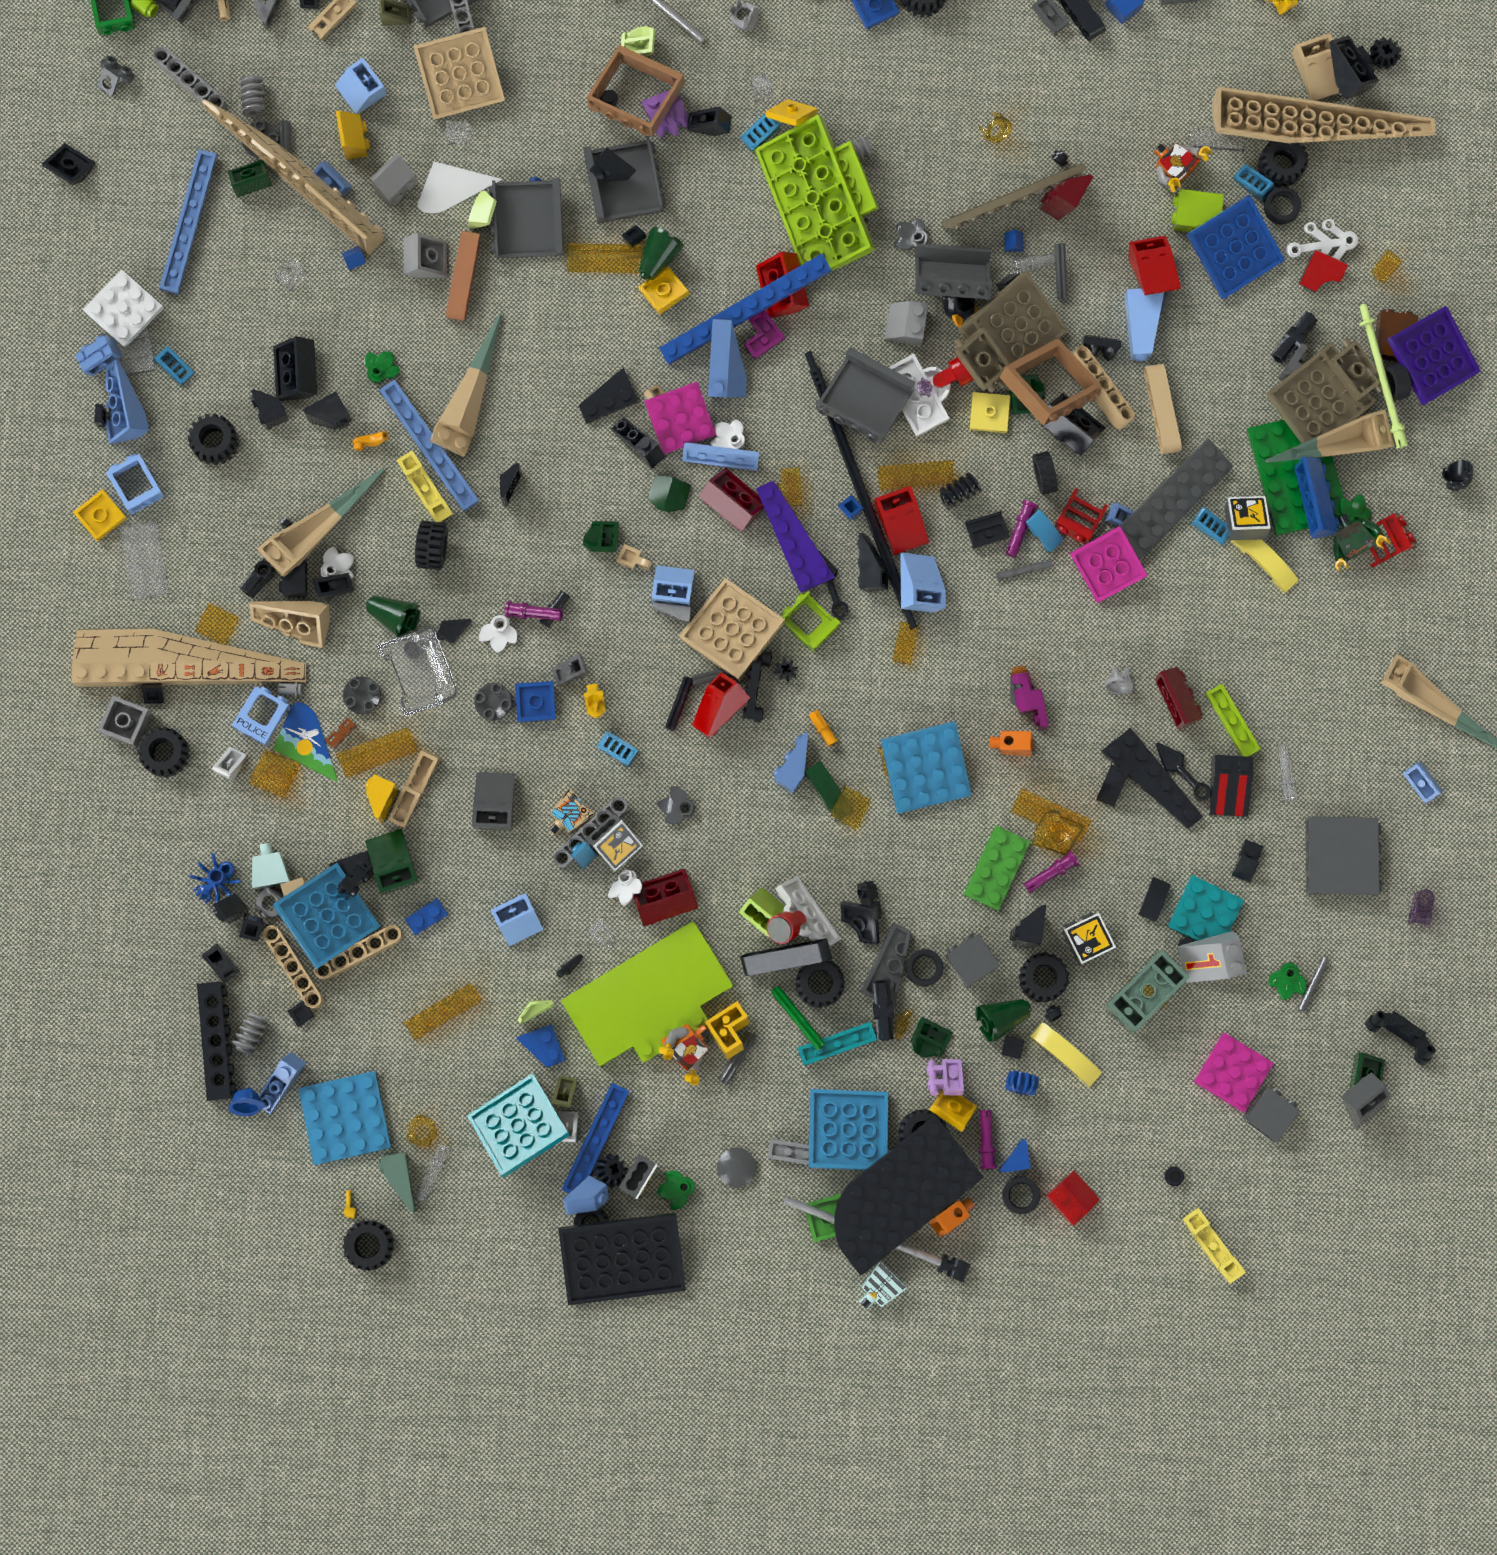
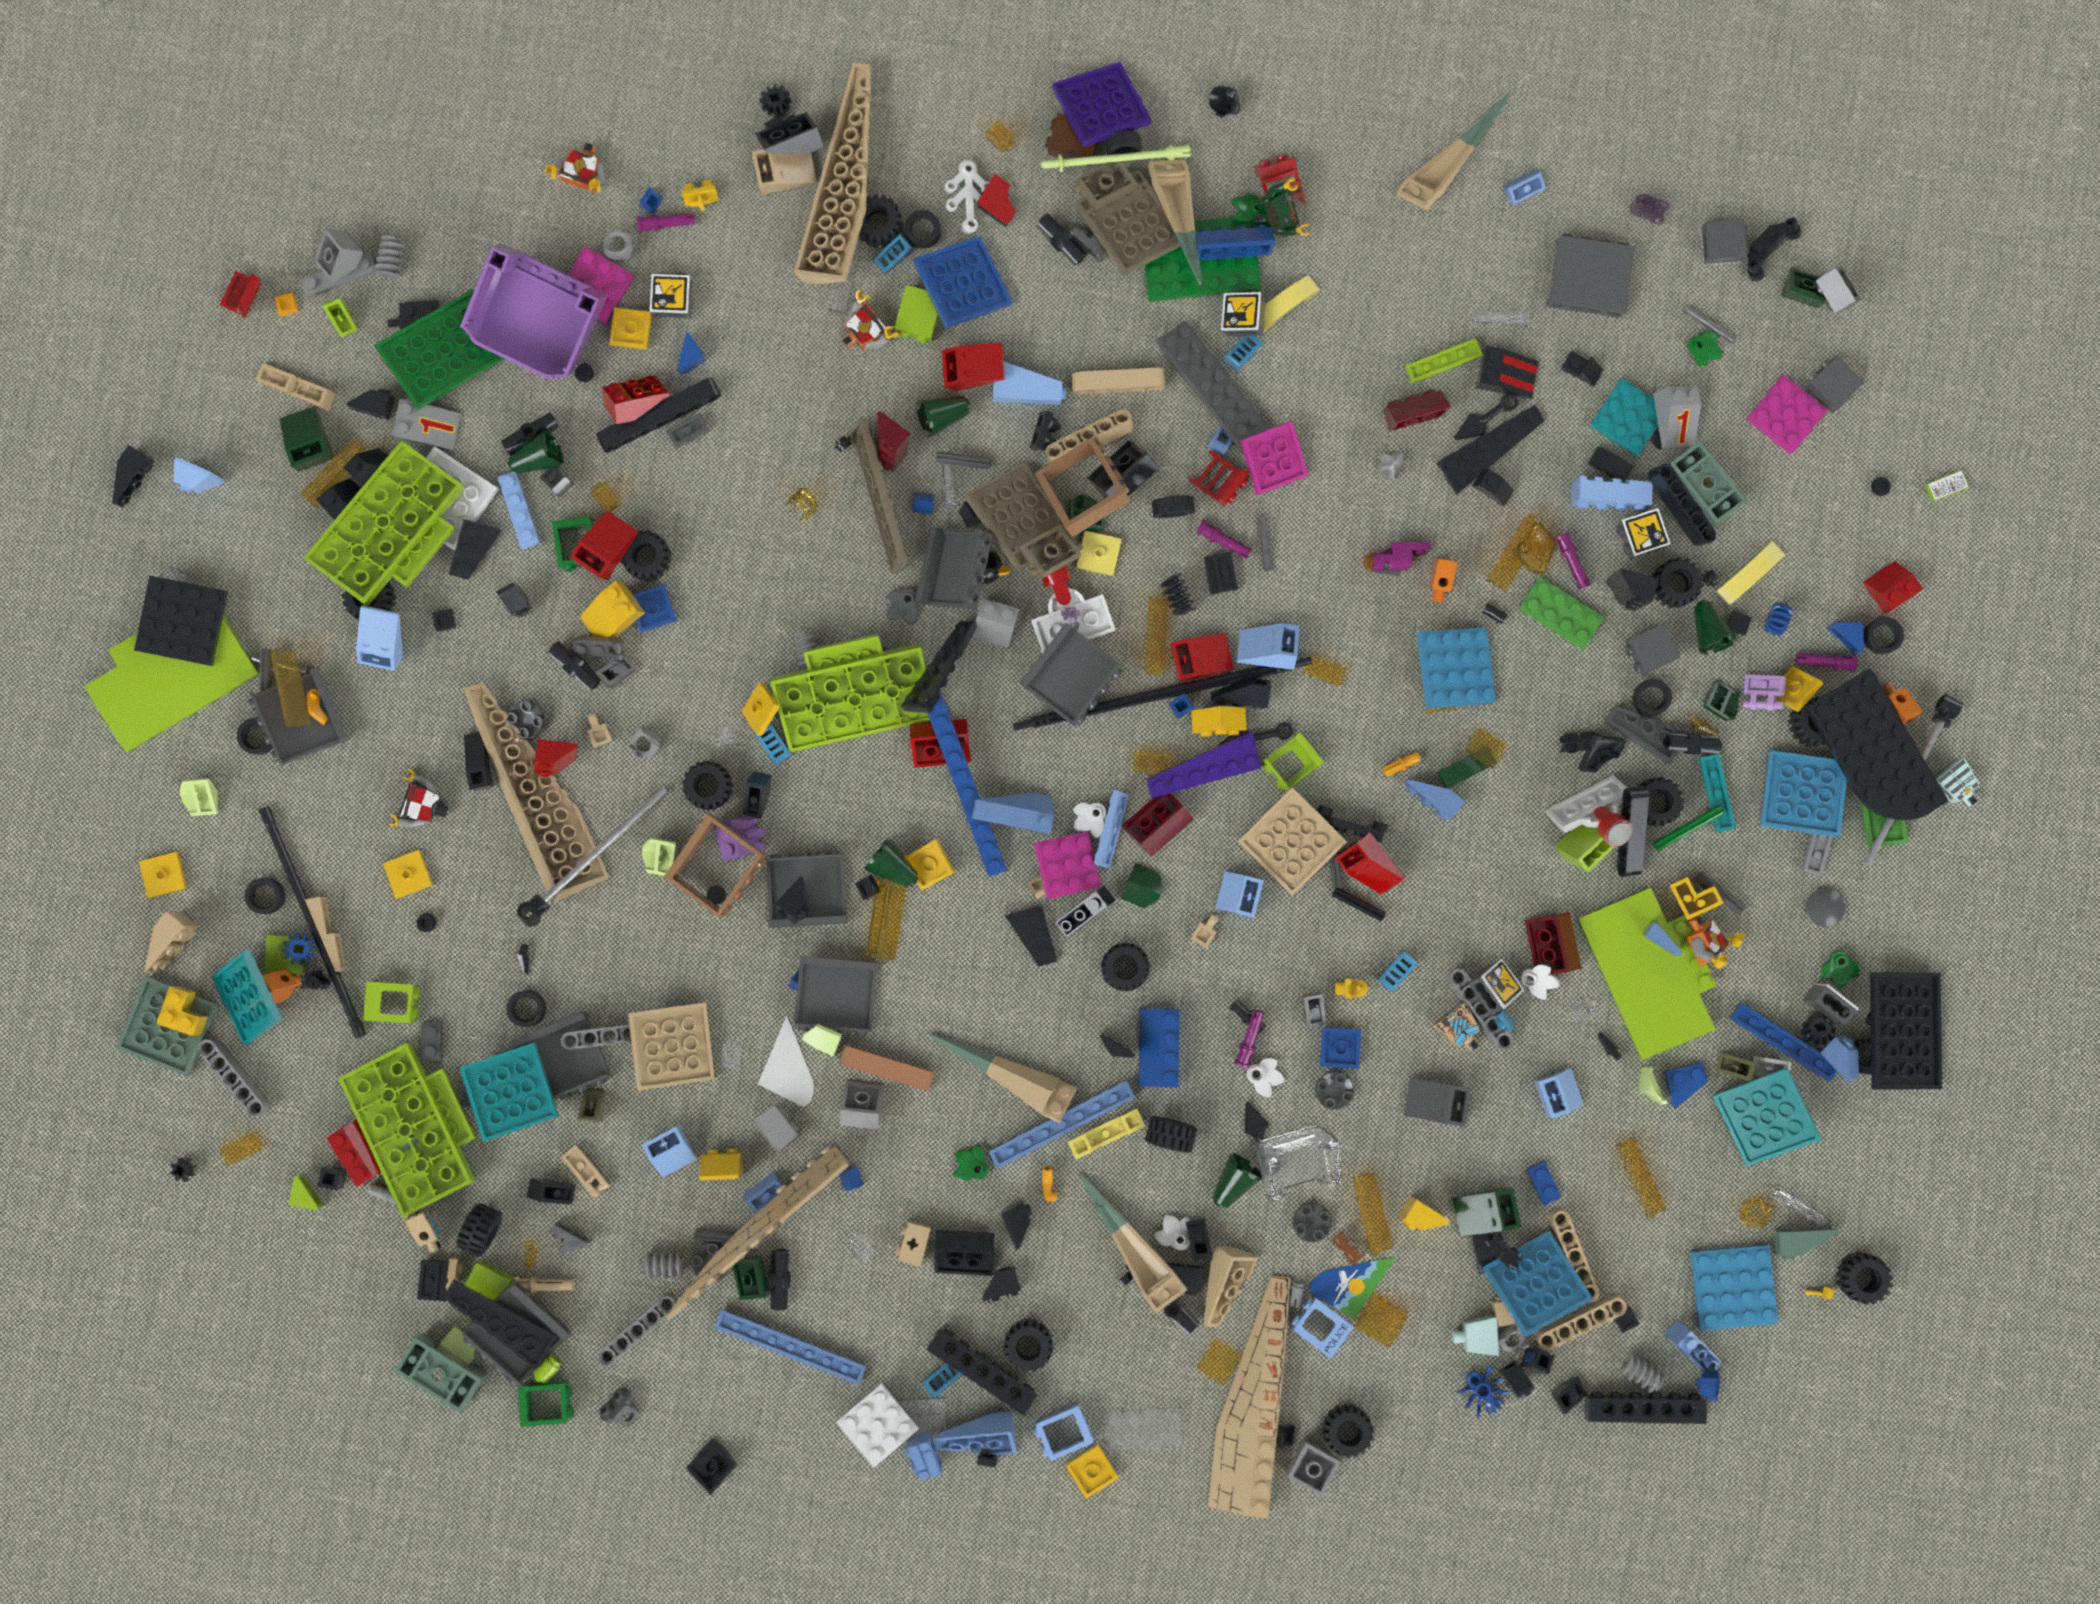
camera: 75 degrees left, 5 degrees up
(202, 355) = (937, 1348): none -> black brick
(229, 763) = (1367, 1364): white slope -> none
(250, 203) = (779, 1279): none -> black piece
(291, 315) = (921, 1234): none -> tan brick
(414, 788) = (1412, 1180): tan slope -> none
(514, 529) = (1159, 1048): none -> blue slope
(588, 469) = (1113, 954): none -> black tyre
(602, 537) = (1180, 960): dark green slope -> none
(673, 806) = (1462, 923): dark grey plate -> none
(676, 612) = (1267, 893): light grey slope -> none
(684, 996) = (1658, 936): none -> medium blue slope
(707, 62) = (691, 785): none -> black tyre
(767, 336) = (991, 765): magenta plate -> none
(784, 665) = (1345, 792): black gear -> none
(826, 254) = (926, 689): none -> black wing
(842, 544) = (1219, 721): none -> yellow brick
(986, 802) = (1495, 613): none -> black pin
(1044, 530) = (1230, 516): dark azure slope -> none
(1104, 245) = (941, 413): none -> dark green cone
(1124, 901) = (1611, 494): none -> light blue wedge
(1125, 961) = (1682, 505): none -> black beam
(1185, 1245) = (1946, 486): none -> tile
(1213, 1246) = (1953, 458): light yellow slope -> none
(1400, 987) = (1724, 242): none -> dark grey piece

